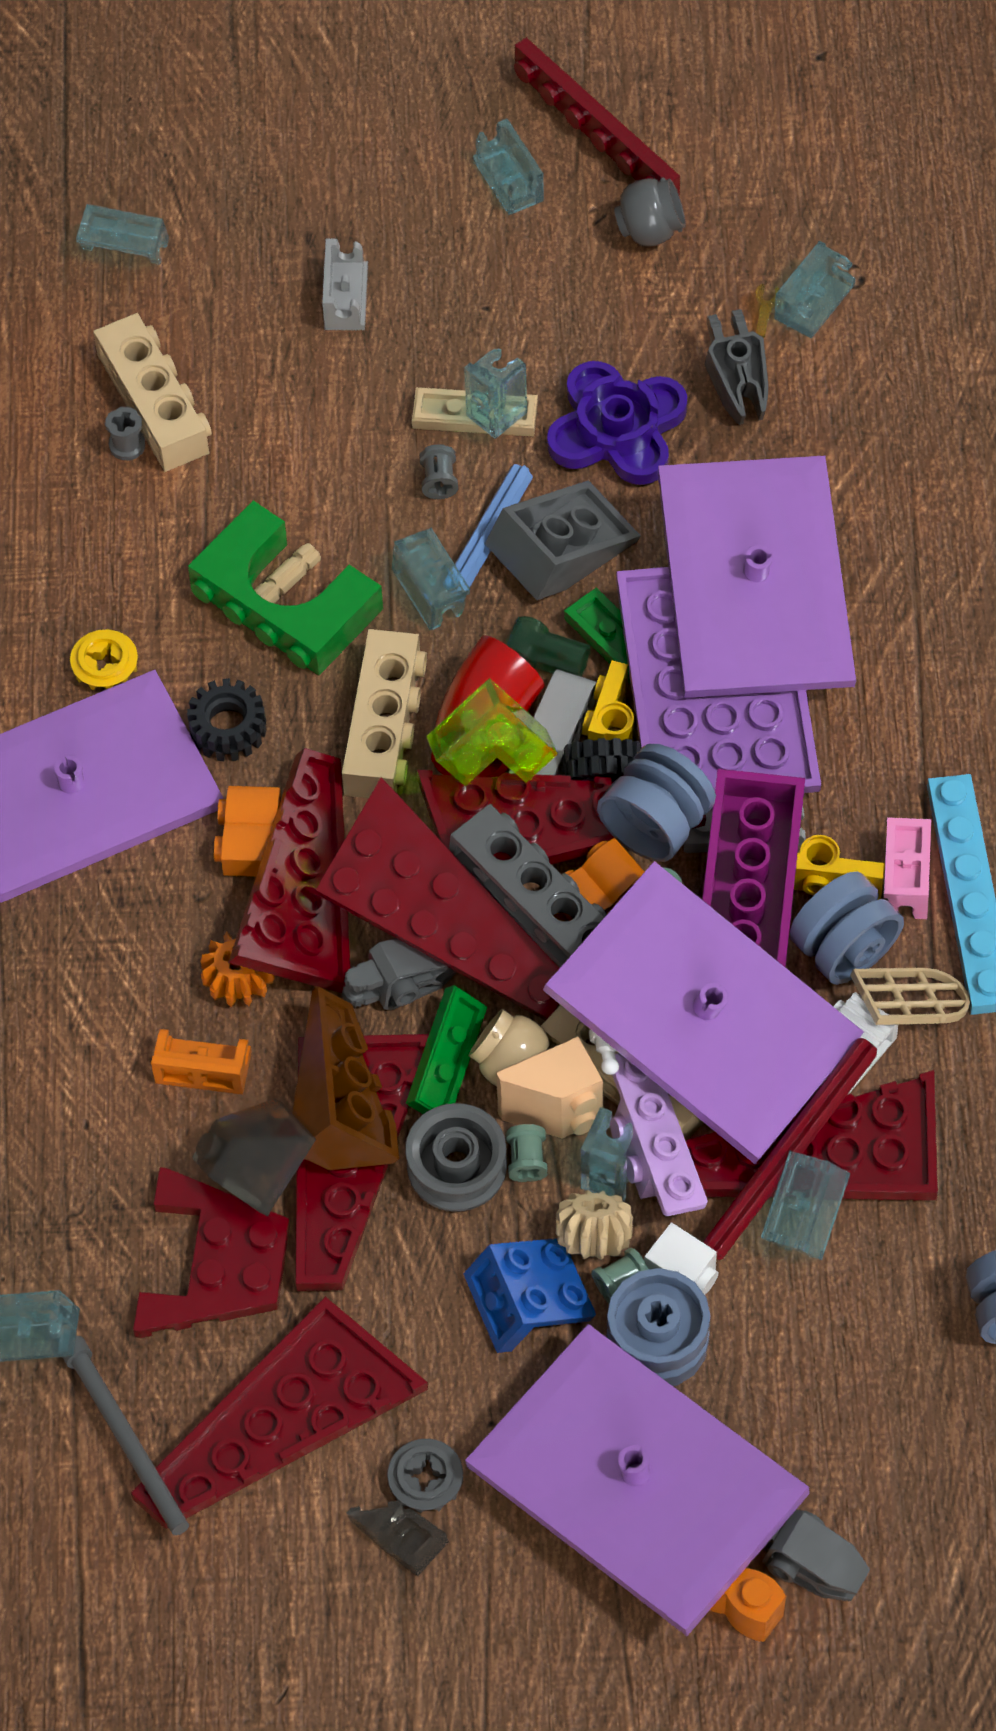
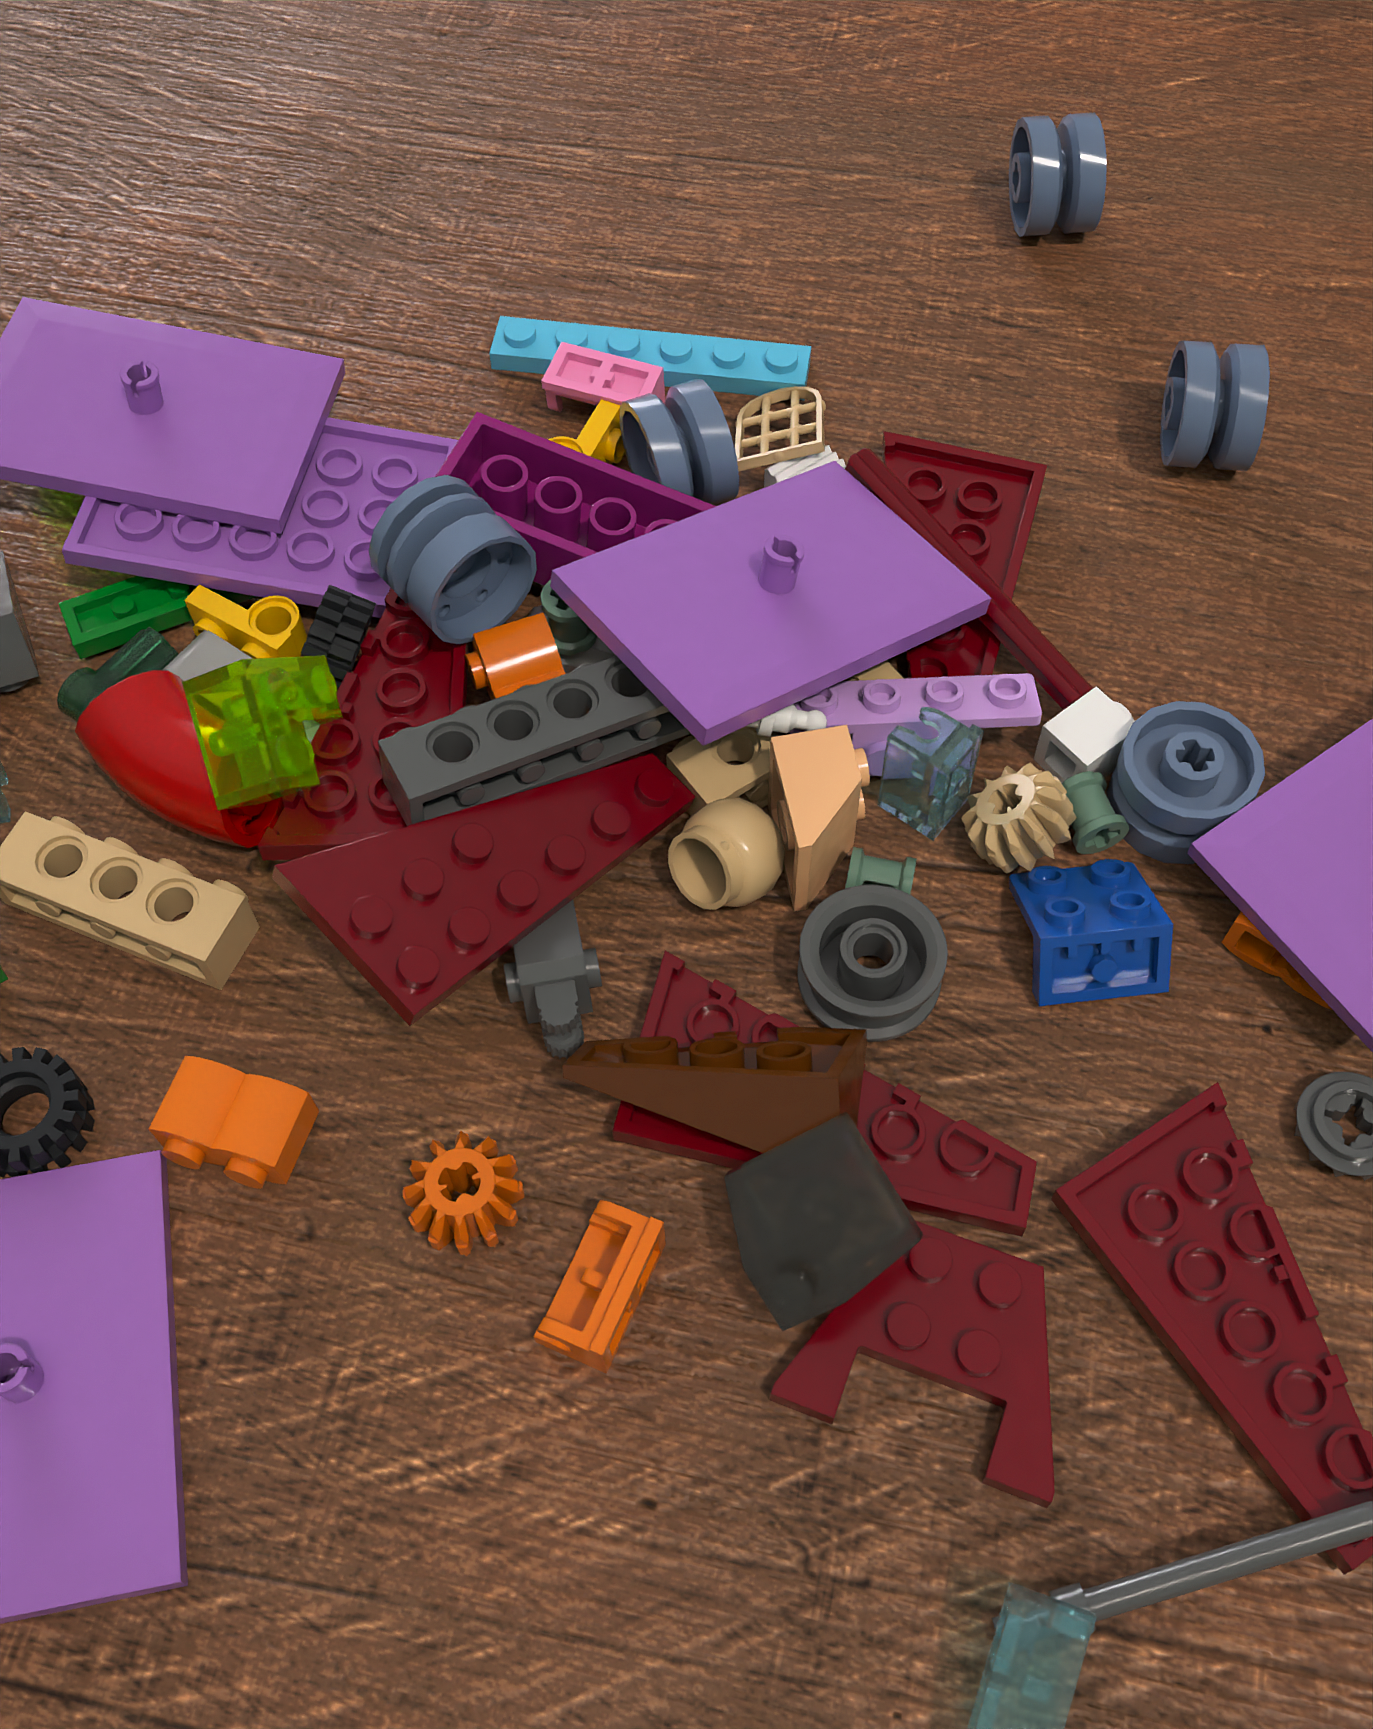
camera: 75 degrees left, 0 degrees up
(285, 923) = (419, 1082): dark red wing -> none
(447, 1051) = (700, 942): green tile -> none
(805, 1205) = (1048, 582): clear light blue hinge -> none

